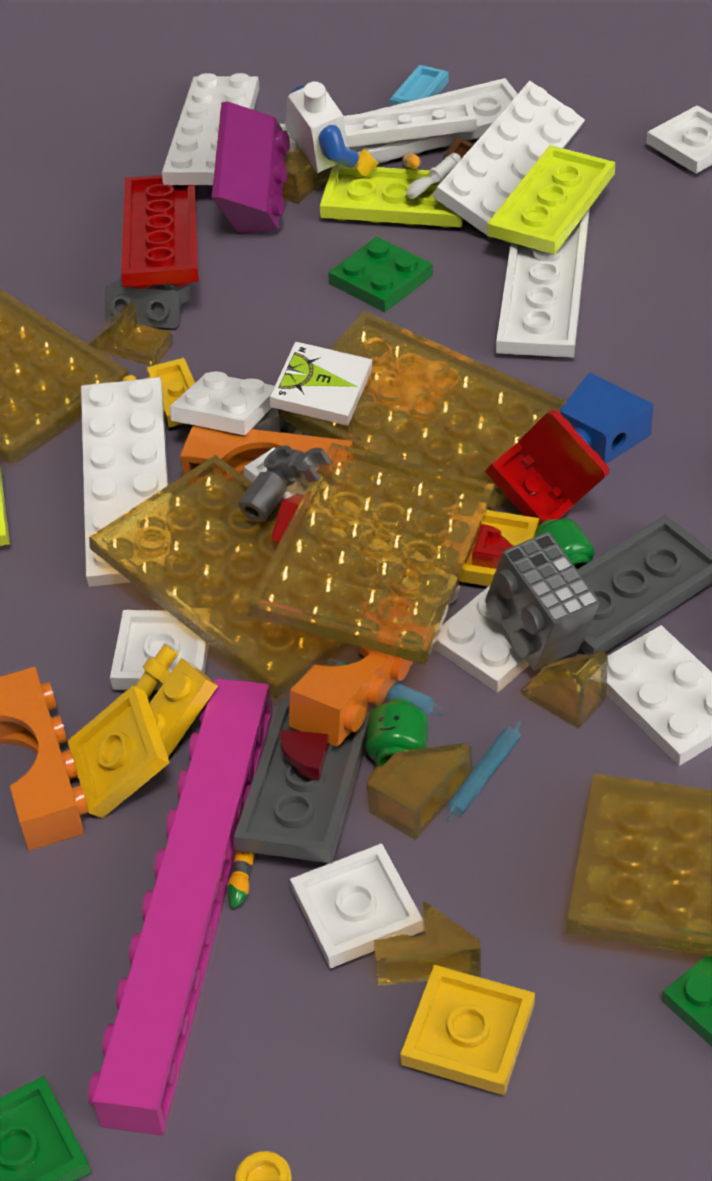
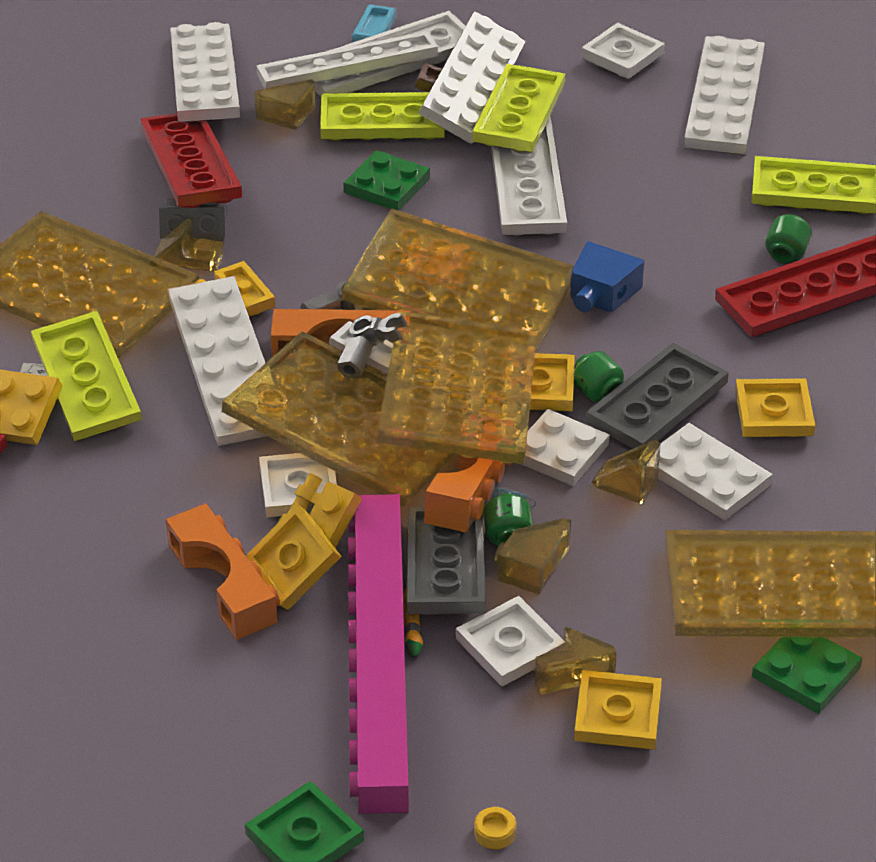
camera: 15 degrees left, 5 degrees down
(223, 403) = (295, 291): white plate -> none
(250, 168) = (259, 102): magenta slope -> none
(286, 512) = (379, 372): red tile -> none
(305, 751) = (443, 536): dark red tile -> none
(320, 130) = (312, 64): white torso -> none
(321, 383) = (374, 267): white tile -> none
(411, 160) = (389, 85): light orange piece -> none
(436, 175) = (415, 96): white piece -> none
(479, 770) = (583, 540): medium azure piece -> none
(489, 547) = (547, 381): red tile -> none
(541, 601) = (600, 409): dark grey brick -> none
(548, 469) = (577, 314): red bracket -> none

